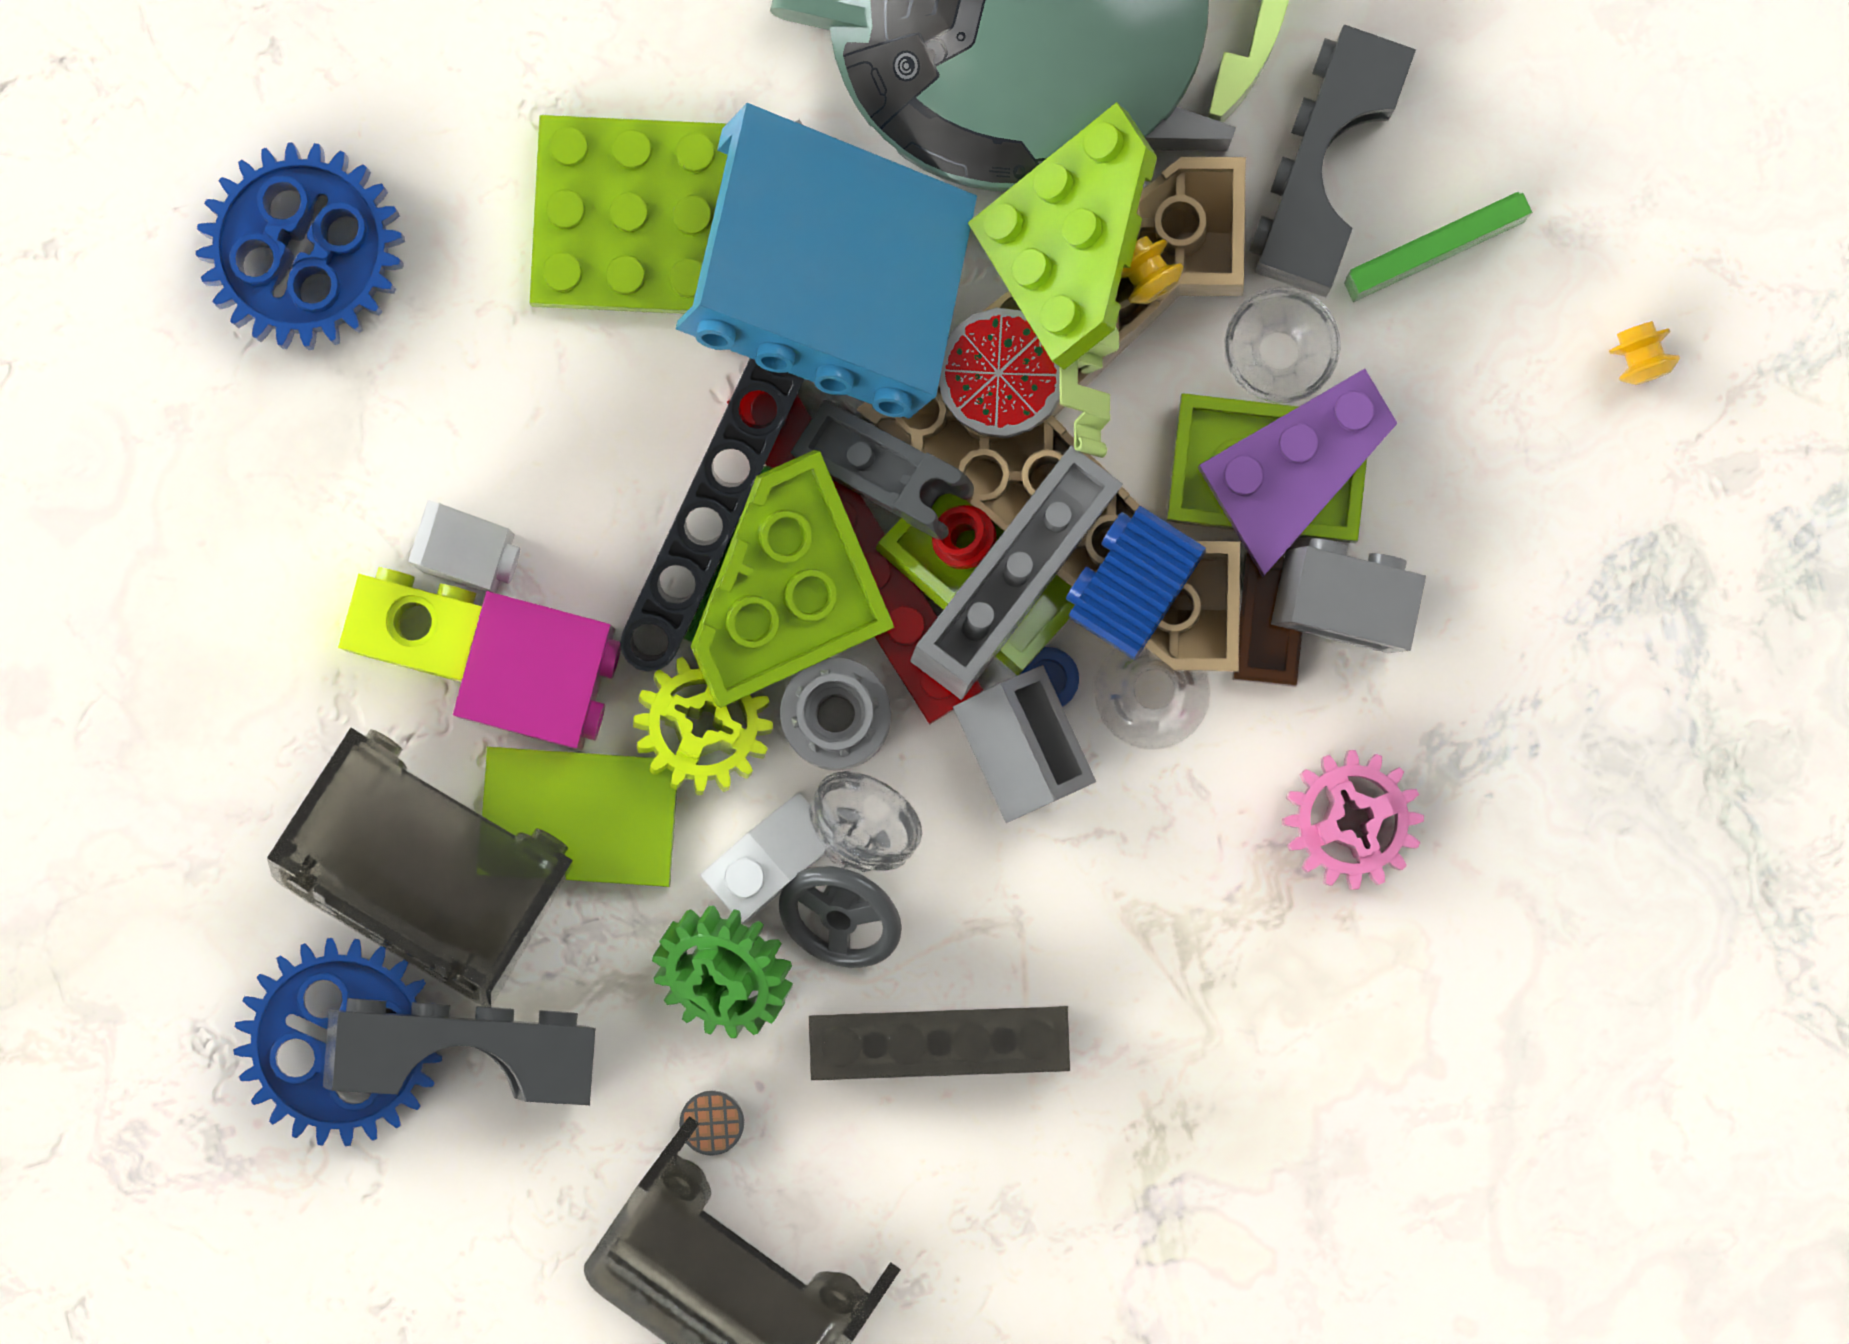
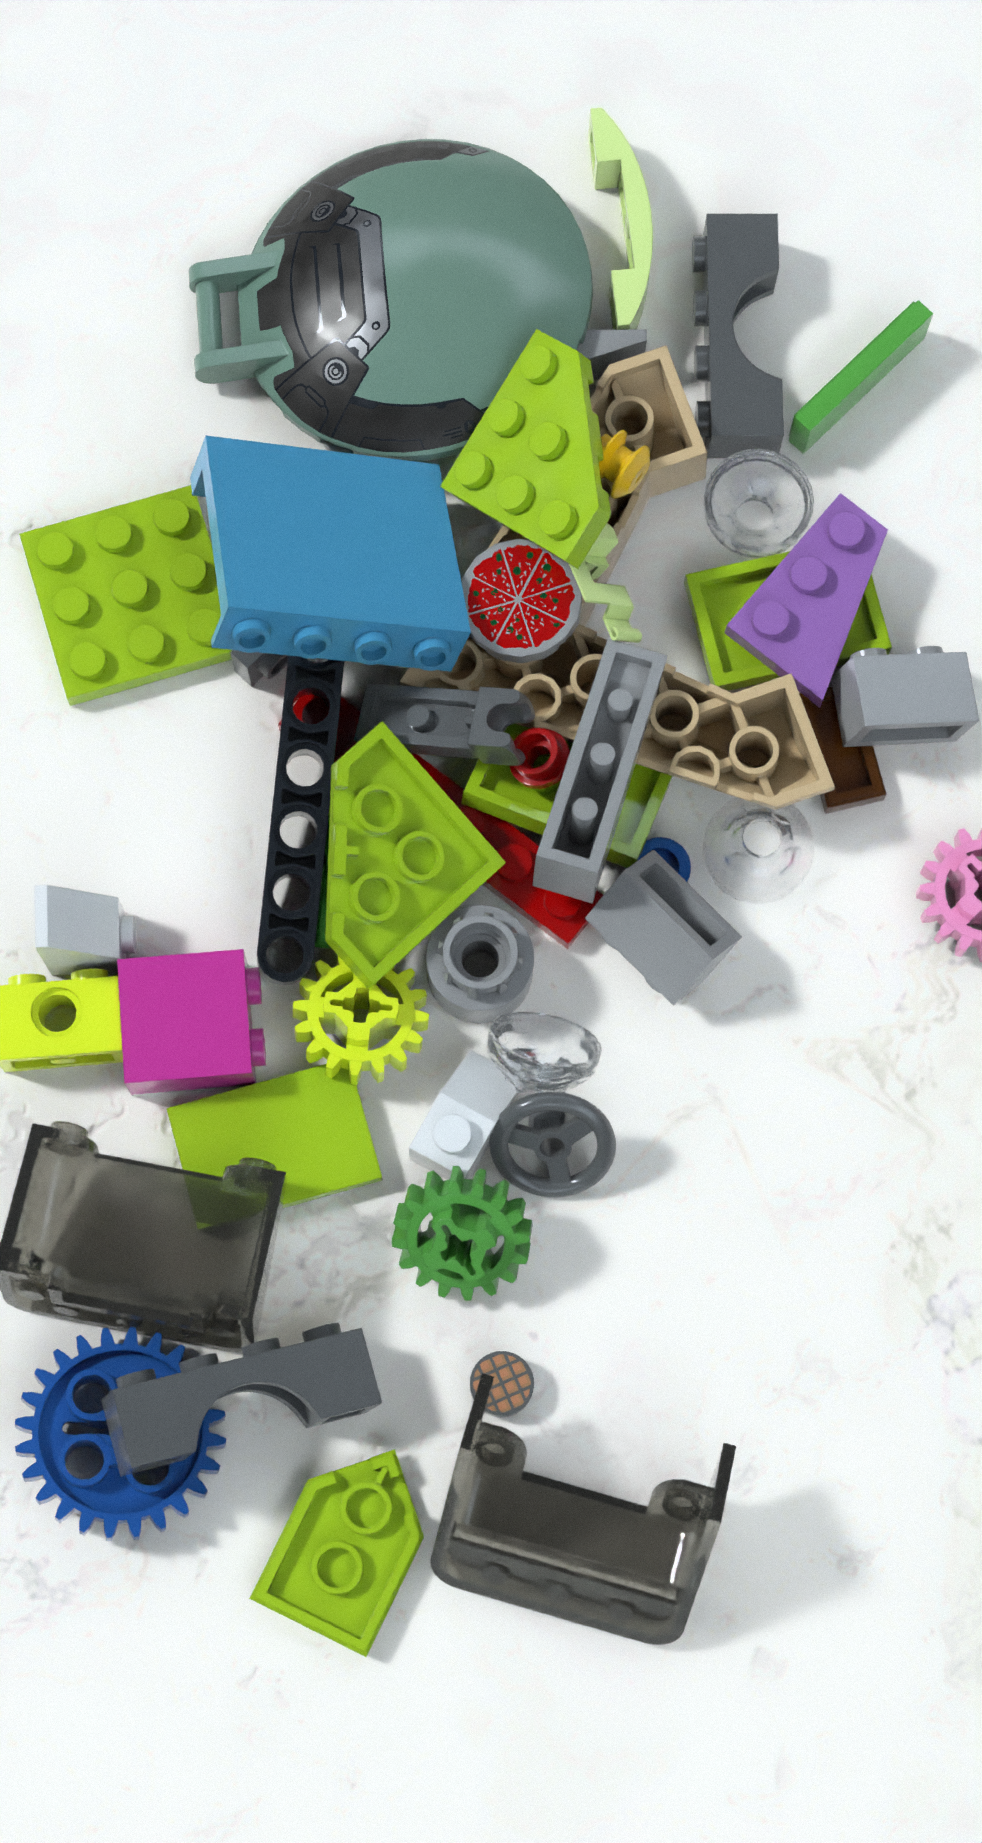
camera: 25 degrees left, 10 degrees down
(509, 1225) = (344, 1552): none -> lime tile
(939, 1042) = (688, 1227): clear smoke brick -> none
(1135, 581) = (713, 735): blue brick -> none

